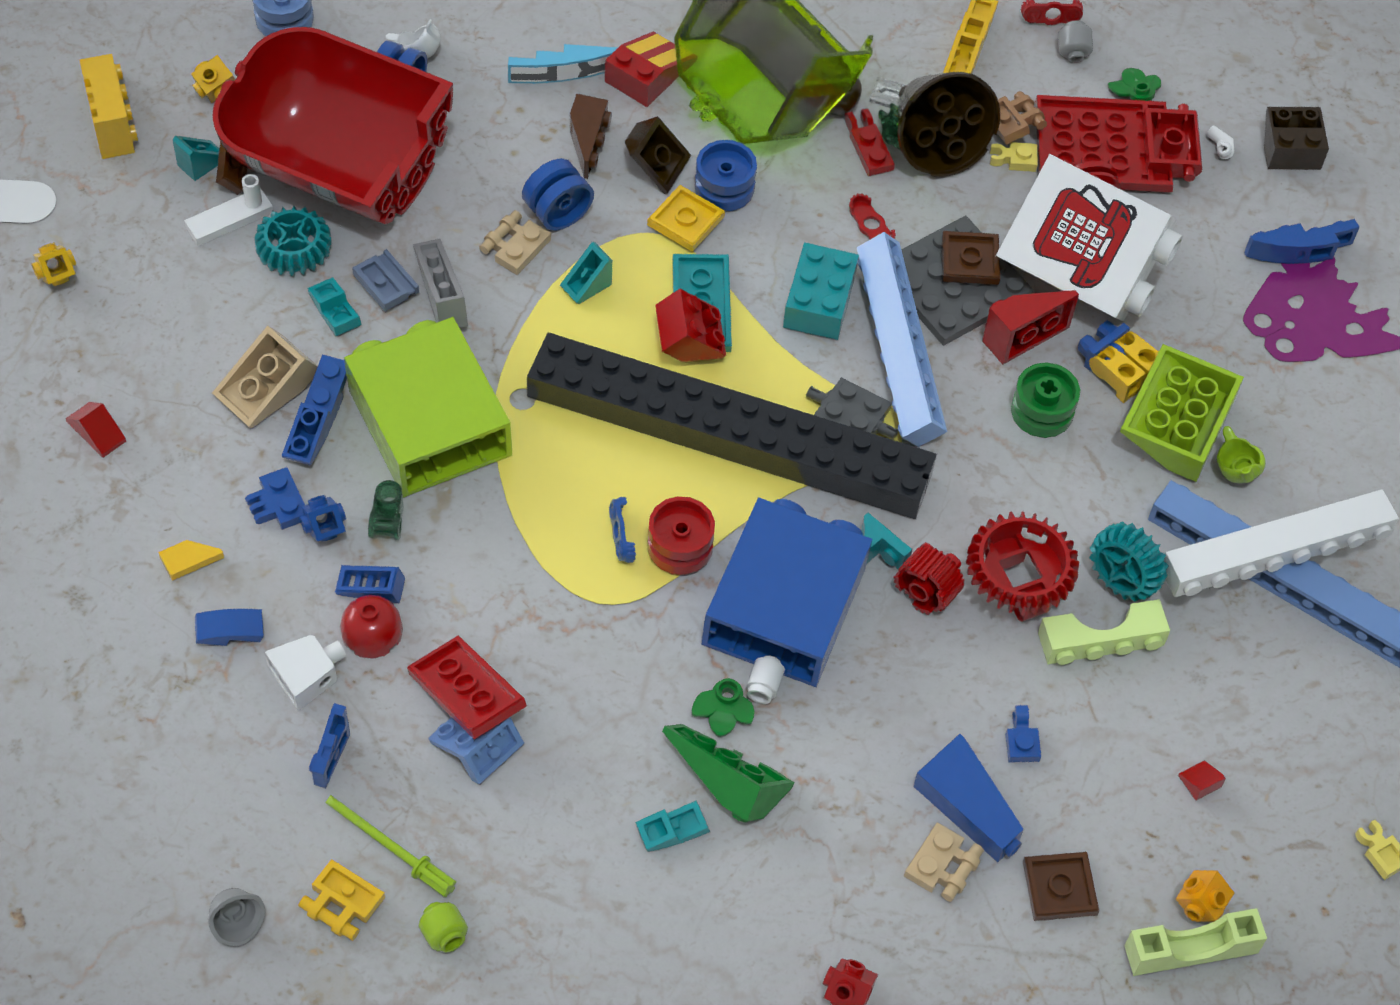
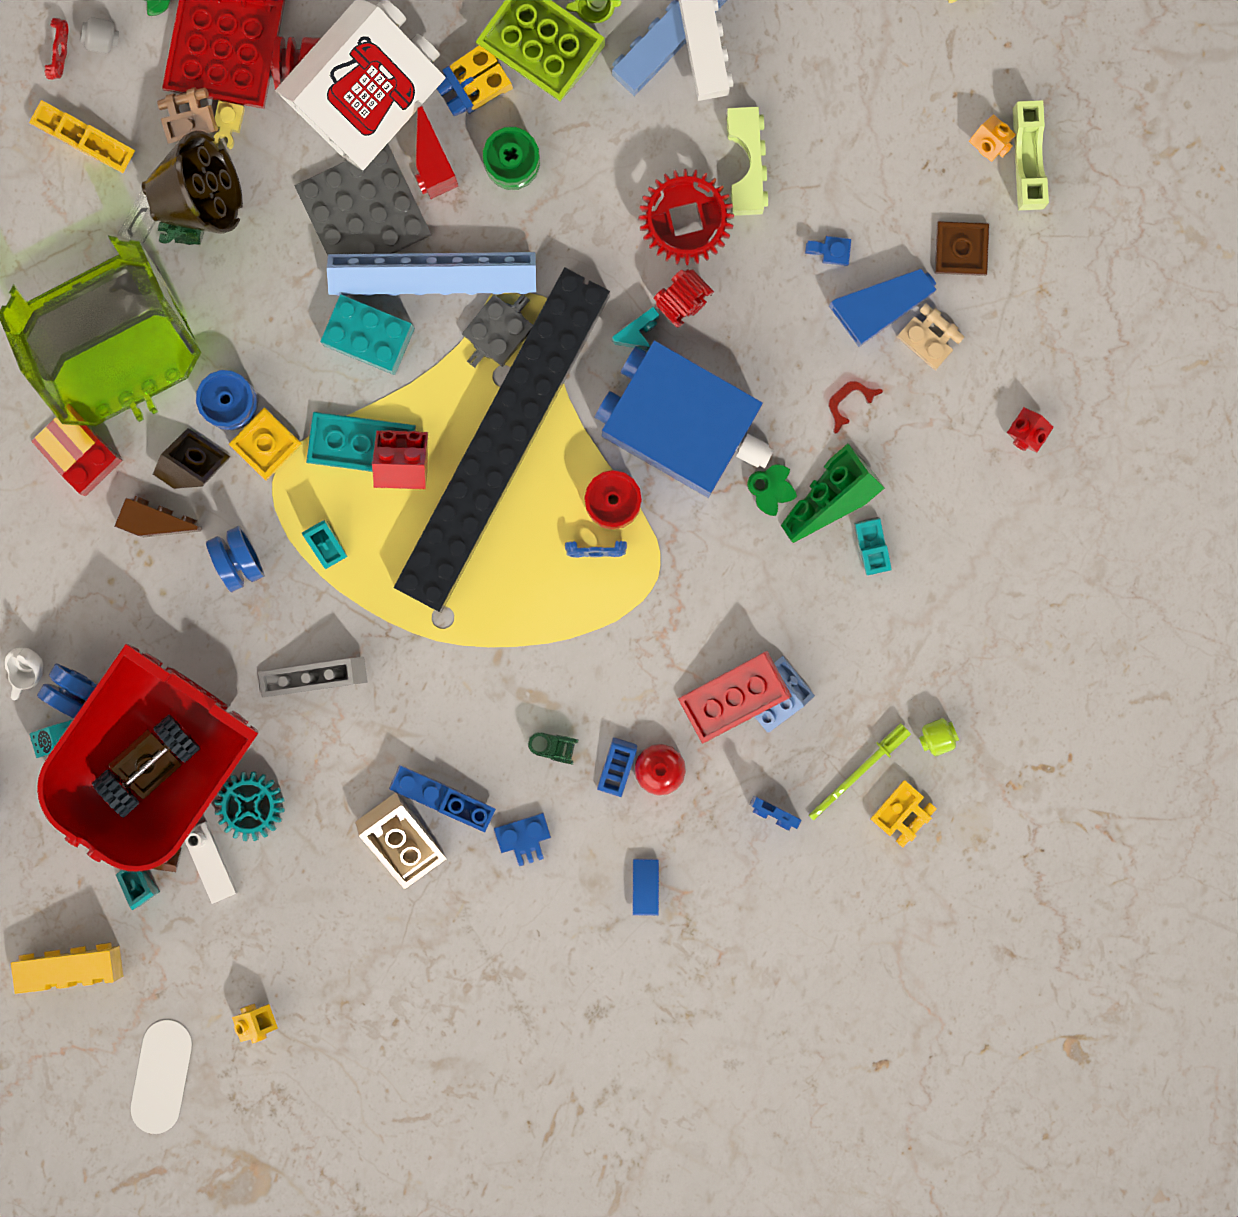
camera: 80 degrees left, 30 degrees up
(97, 428) = (430, 991): red slope -> none
(188, 557) = (572, 918): yellow tile -> none
(210, 77) = (45, 861): yellow brick -> none
(235, 916) = (909, 897): light grey helmet -> none
(304, 668) = (695, 827): white torso -> none
(327, 137) = (145, 765): none -> plate
(330, 525) = (556, 801): blue brick -> none
(334, 307) = (324, 774): teal slope -> none
(385, 280) = (302, 726): sand blue plate -> none
(428, 405) = (451, 702): lime brick -> none
(521, 248) = (277, 598): tan plate -> none
(550, 66) = (67, 523): slope -> none
(844, 765) = (841, 394): none -> clear red helmet
(862, 210) = (272, 279): red piece -> none
(869, 144) = (196, 258): red hinge -> none
(970, 257) = (349, 192): reddish brown tile -> none
(1128, 561) = (693, 126): teal gear -> none
(1202, 779) = (886, 113): red slope -> none

